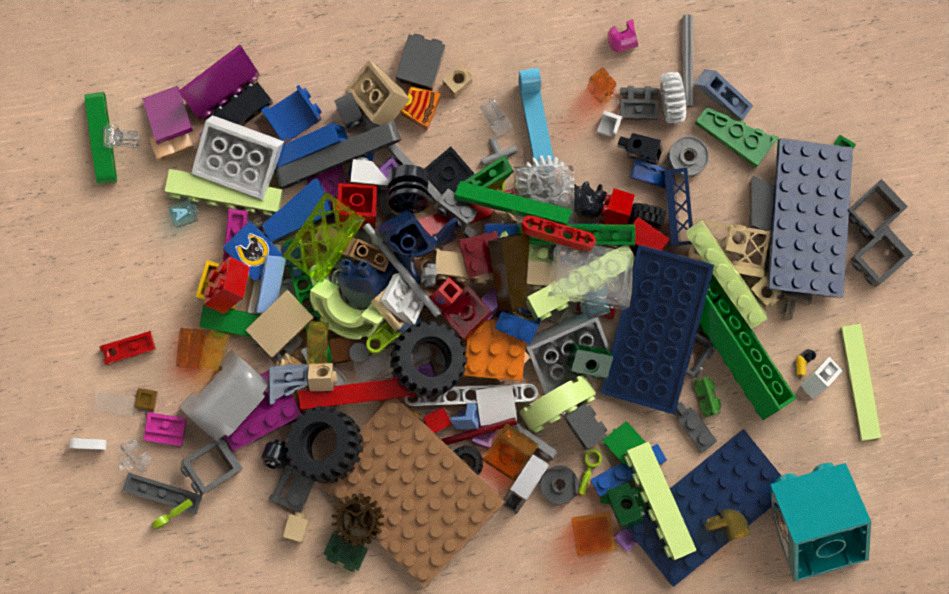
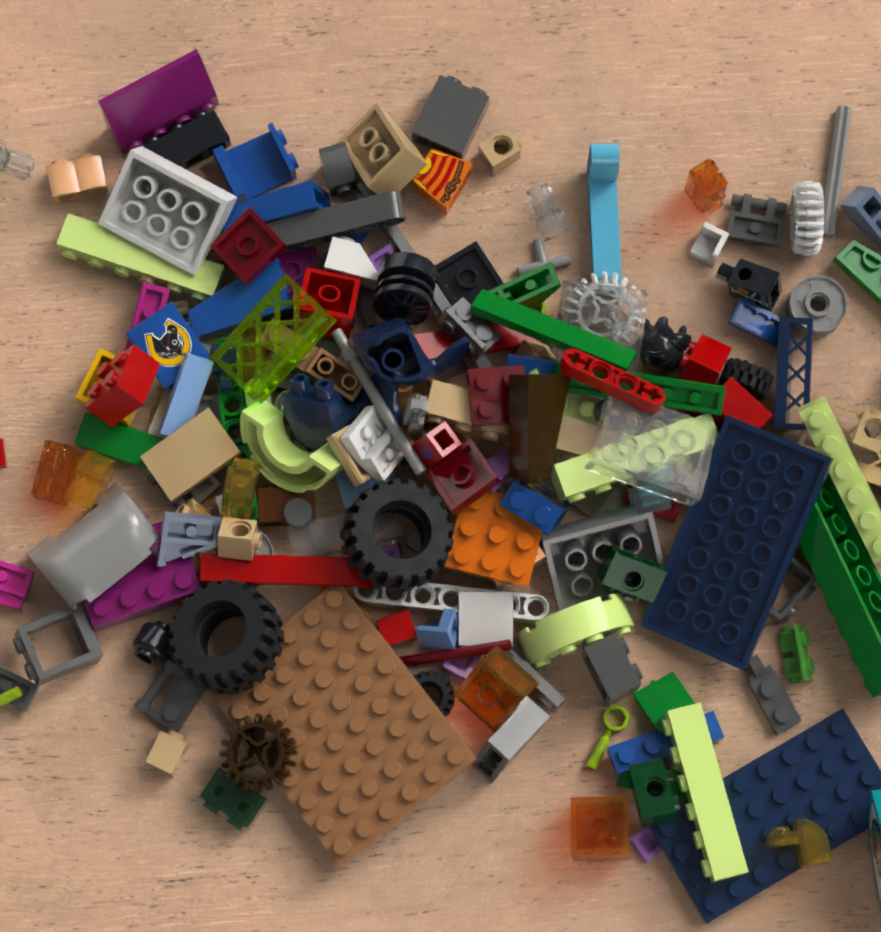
camera: 10 degrees right, 5 degrees down
(167, 115) = (78, 138): magenta tile -> none
(183, 213) = (78, 280): clear light blue brick -> none
(297, 175) = (248, 246): none -> dark red plate
(384, 337) = (339, 493): lime piece -> none
(567, 476) = (573, 738): dark grey plate -> none
(623, 40) = (746, 130): dark pink helmet -> none

